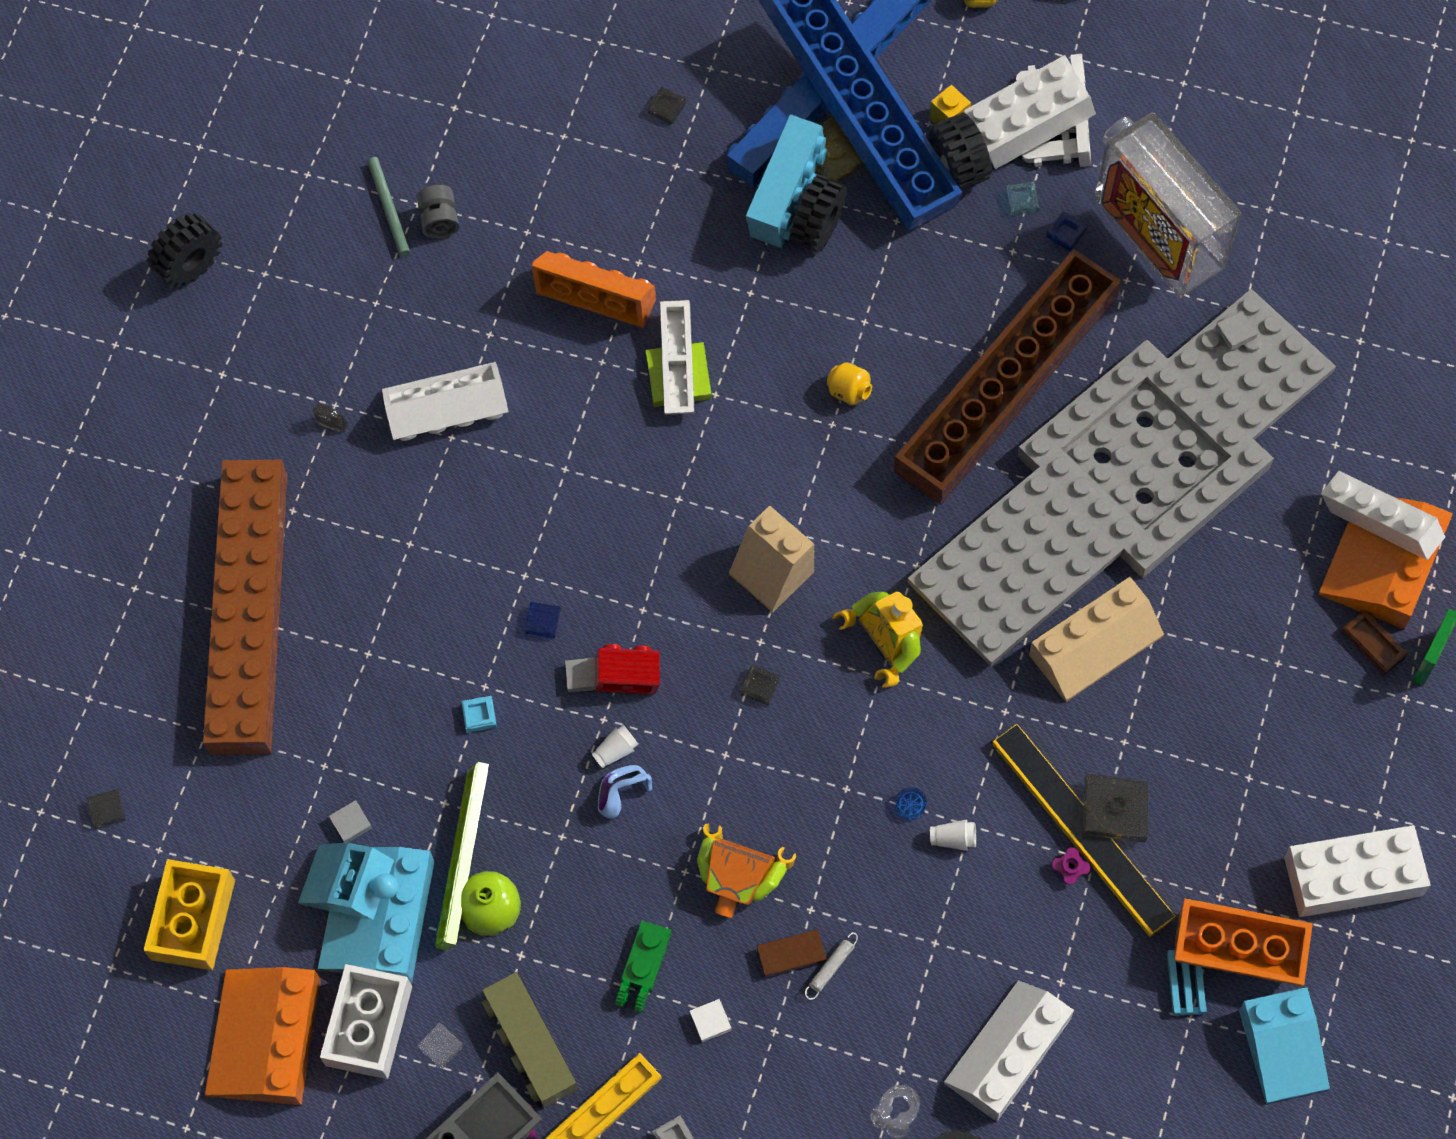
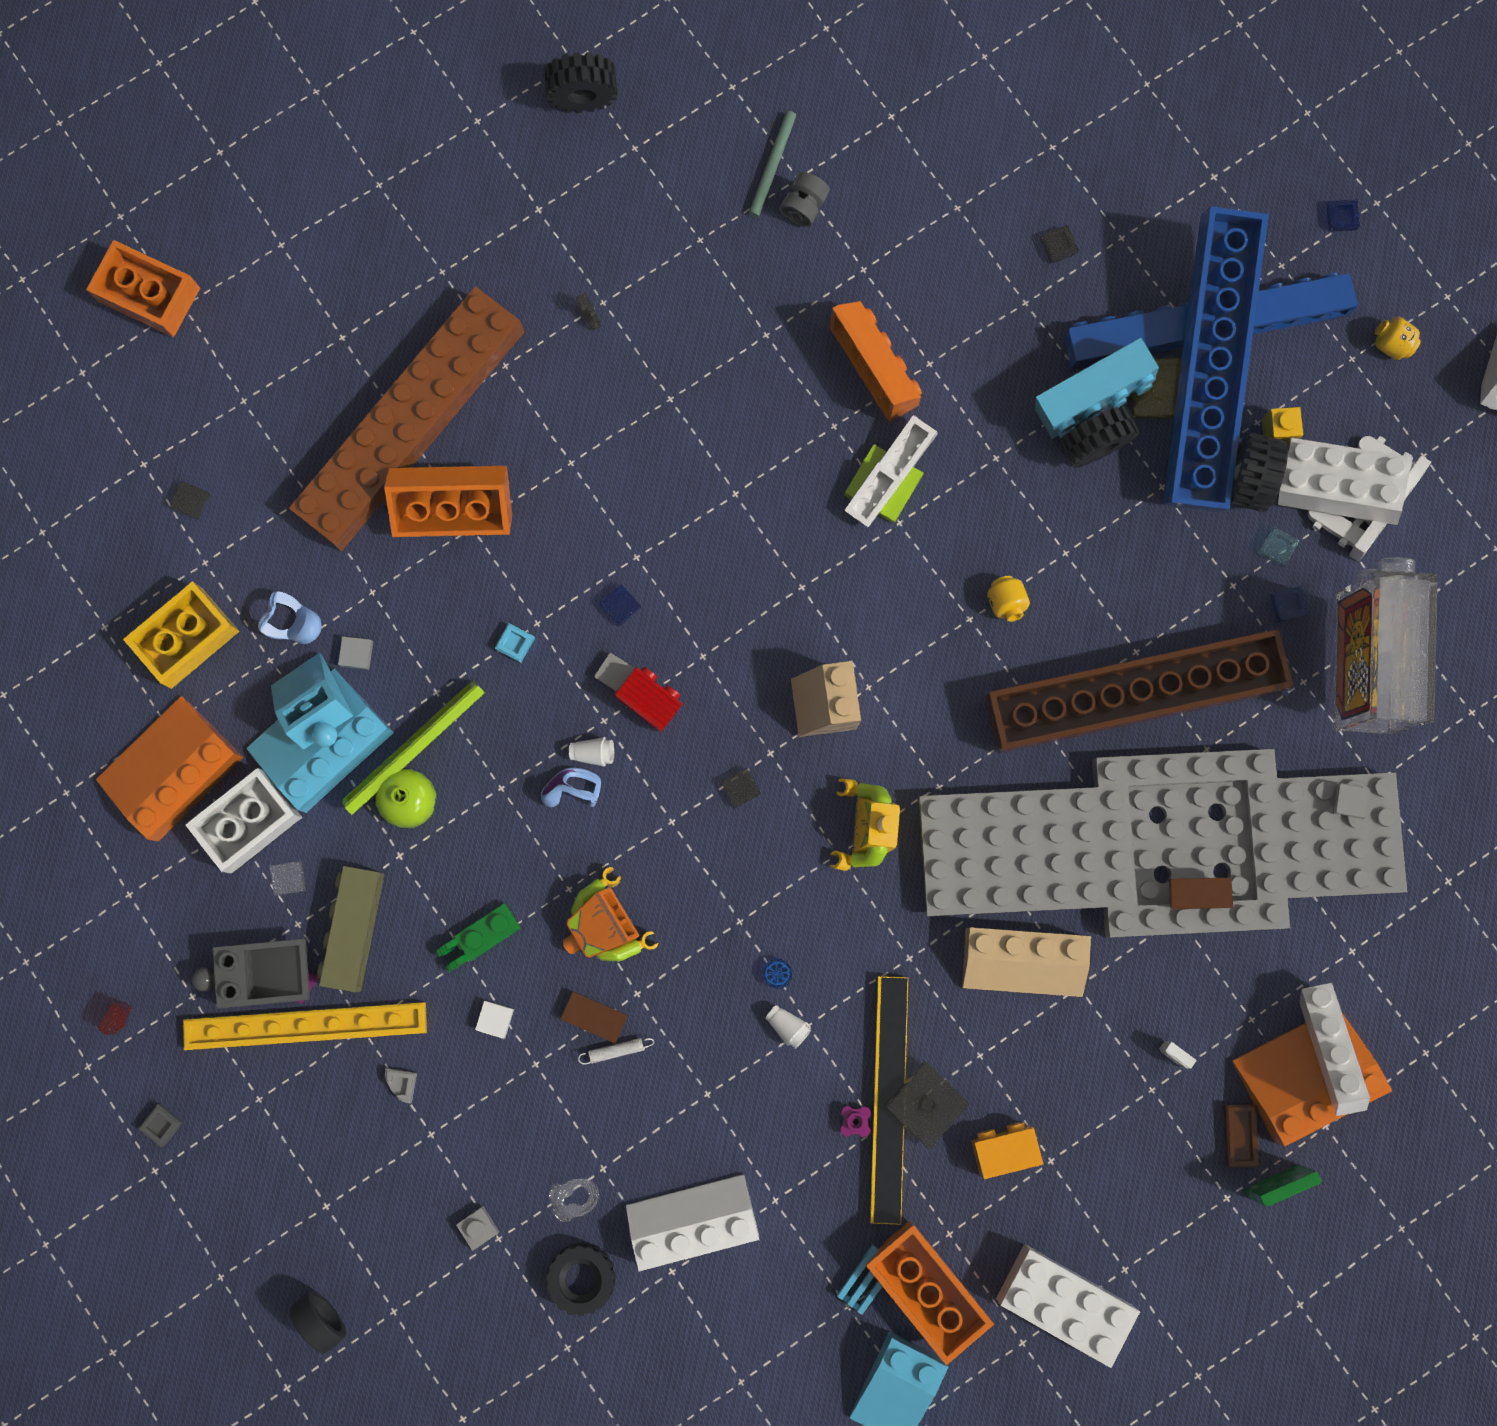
camera: 35 degrees right, 15 degrees up
(289, 831) = (306, 624): none -> light blue piece
(336, 638) = (448, 501): none -> orange brick
(445, 401) = (685, 365): white slope -> none
(1184, 481) = (1200, 893): none -> reddish brown tile
(1207, 793) = (1006, 1150): none -> light orange brick
(1273, 618) = (1177, 1055): none -> white tile

